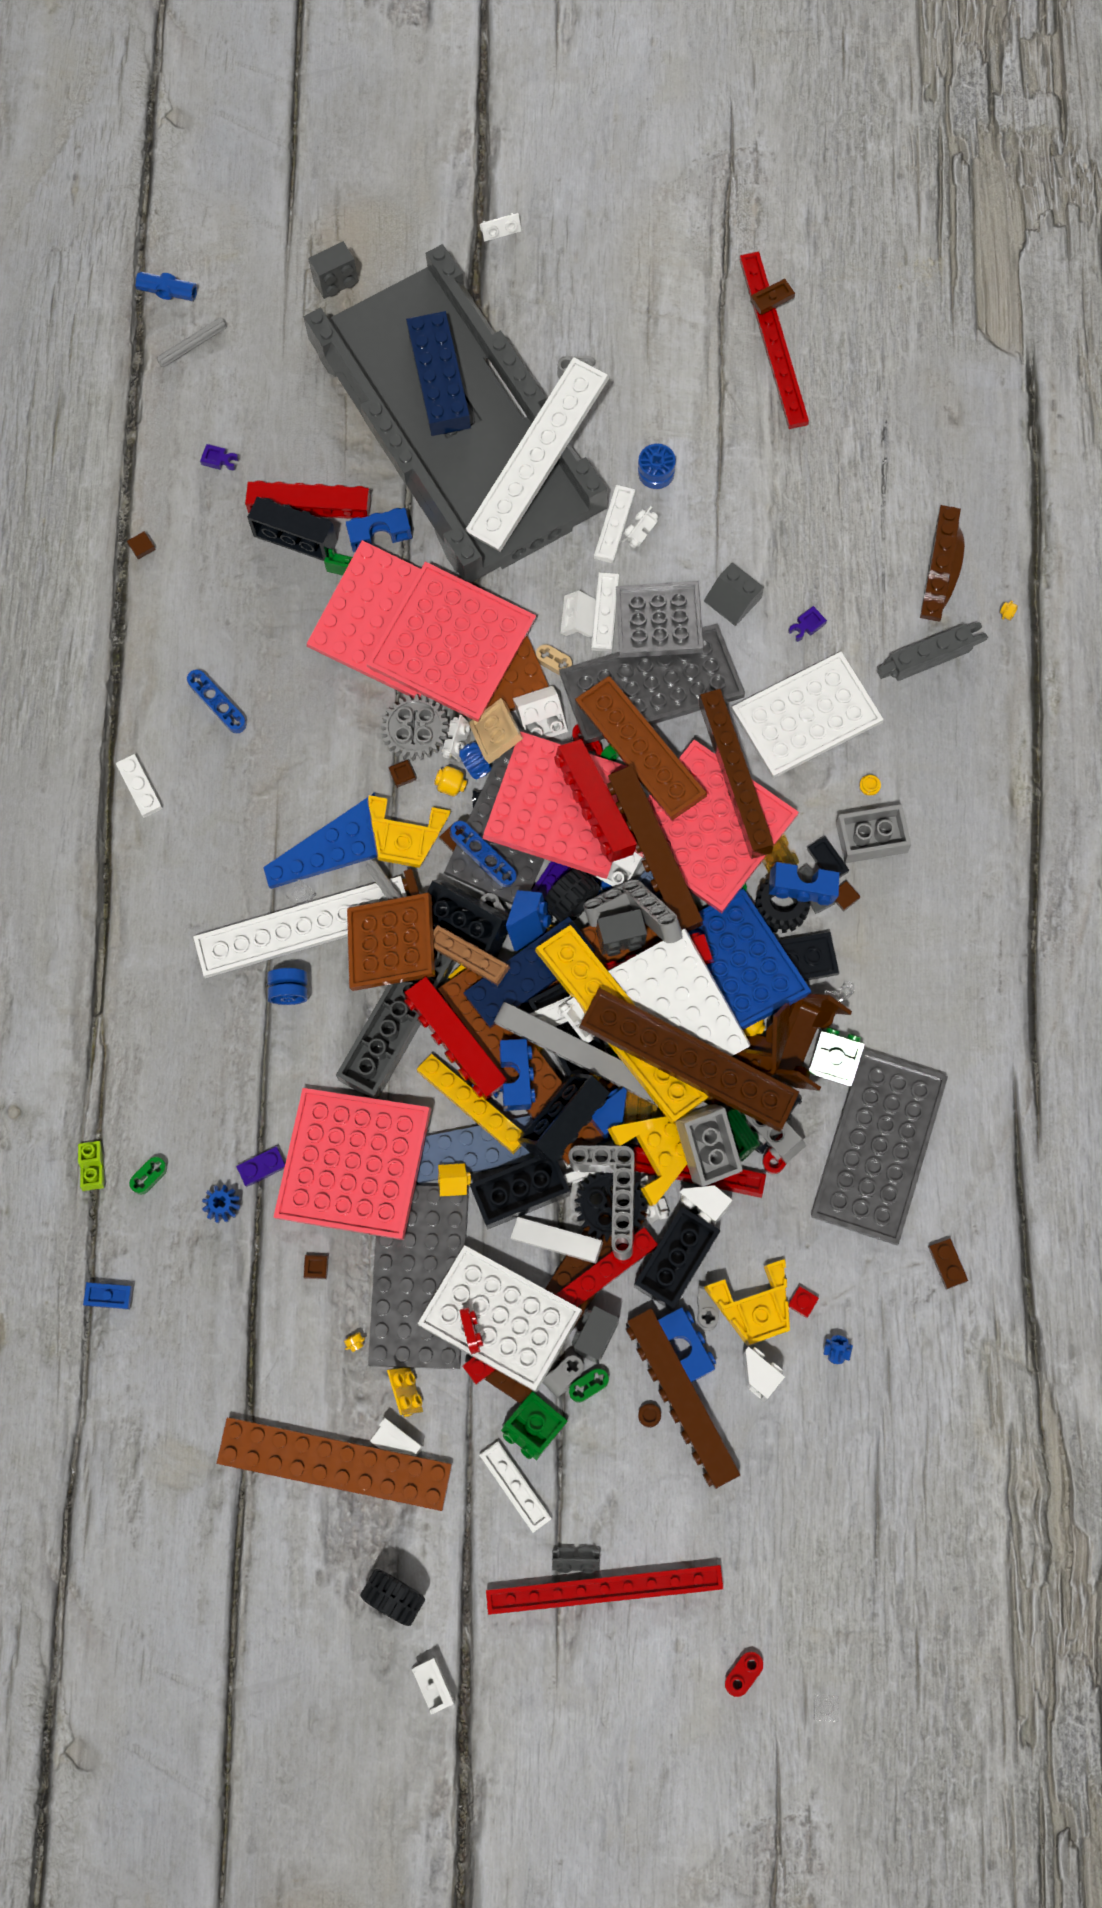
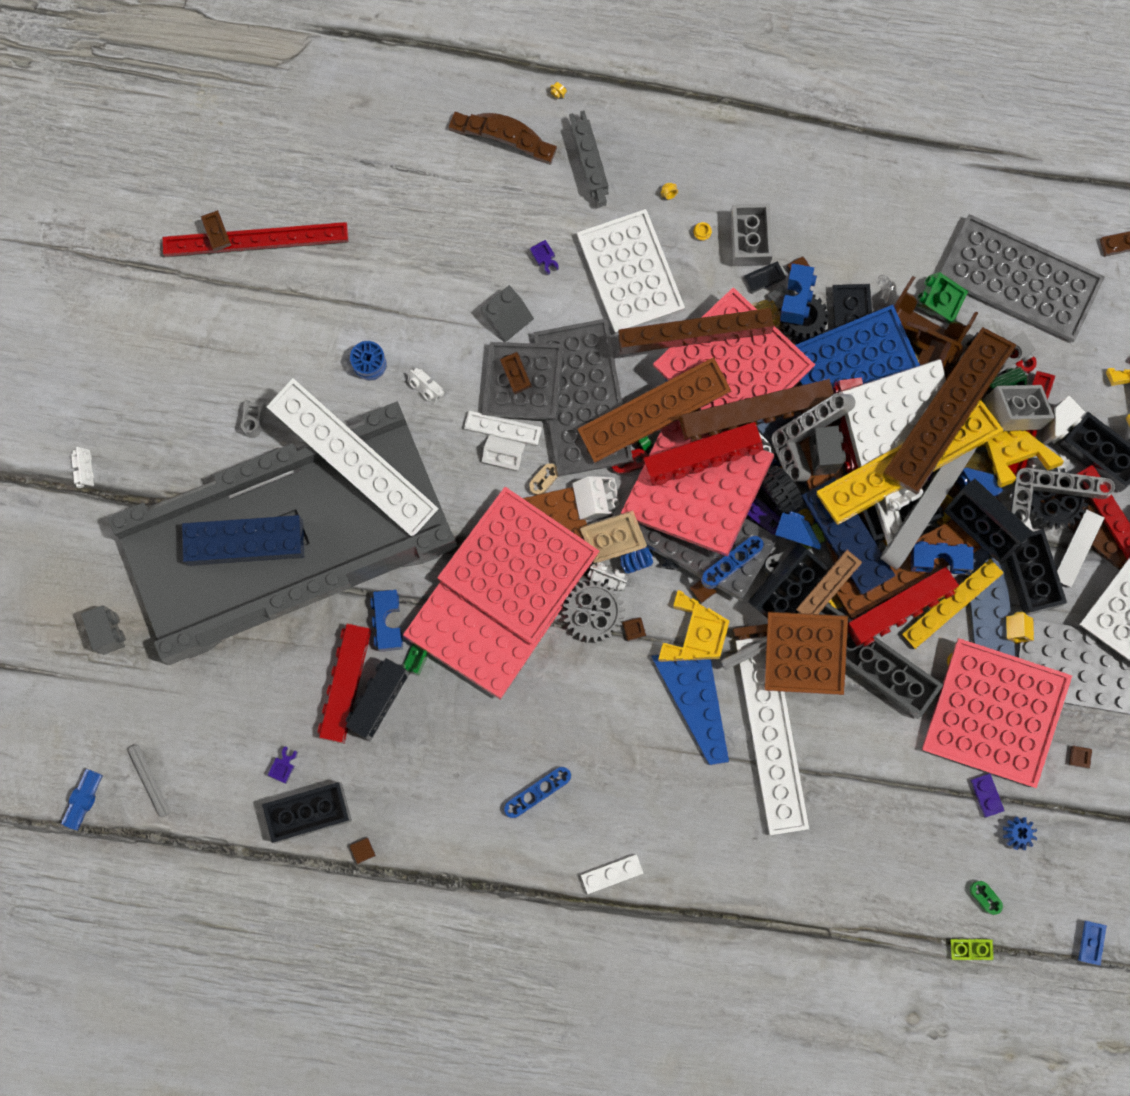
camera: 85 degrees left, 5 degrees up
(171, 484) = (307, 812): none -> black brick
(287, 986) = (830, 752): blue wheel -> none
(450, 781) = (650, 586): yellow head -> none
(614, 524) = (417, 407): white tile -> none
(663, 607) = (516, 373): none -> reddish brown plate
(911, 743) = (669, 191): none -> yellow plate

